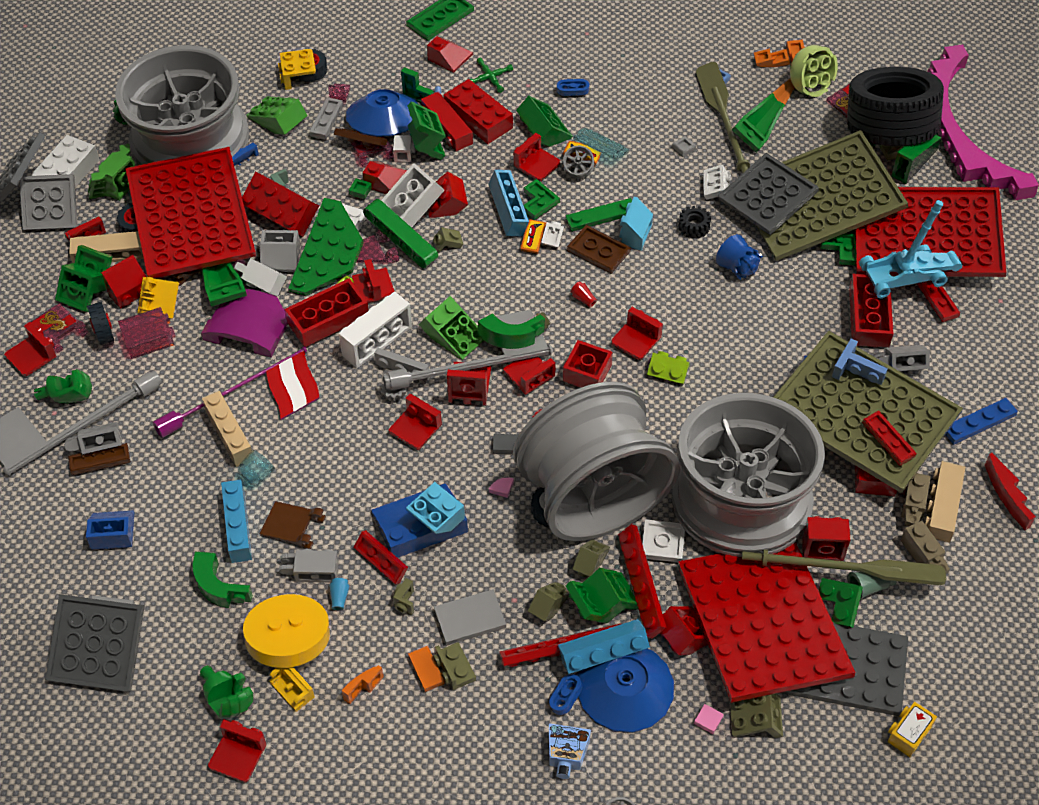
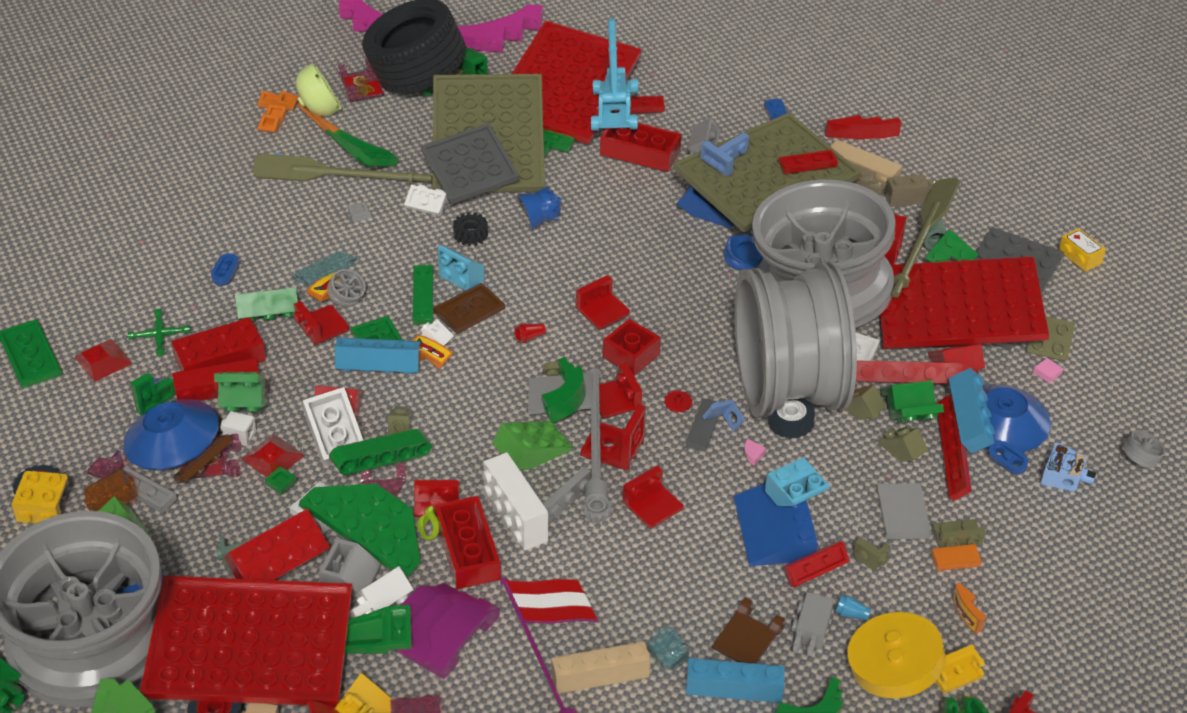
camera: 75 degrees left, 10 degrees down
(311, 99) = (116, 484): none -> clear orange brick
(668, 368) = (651, 294): lime bracket -> none

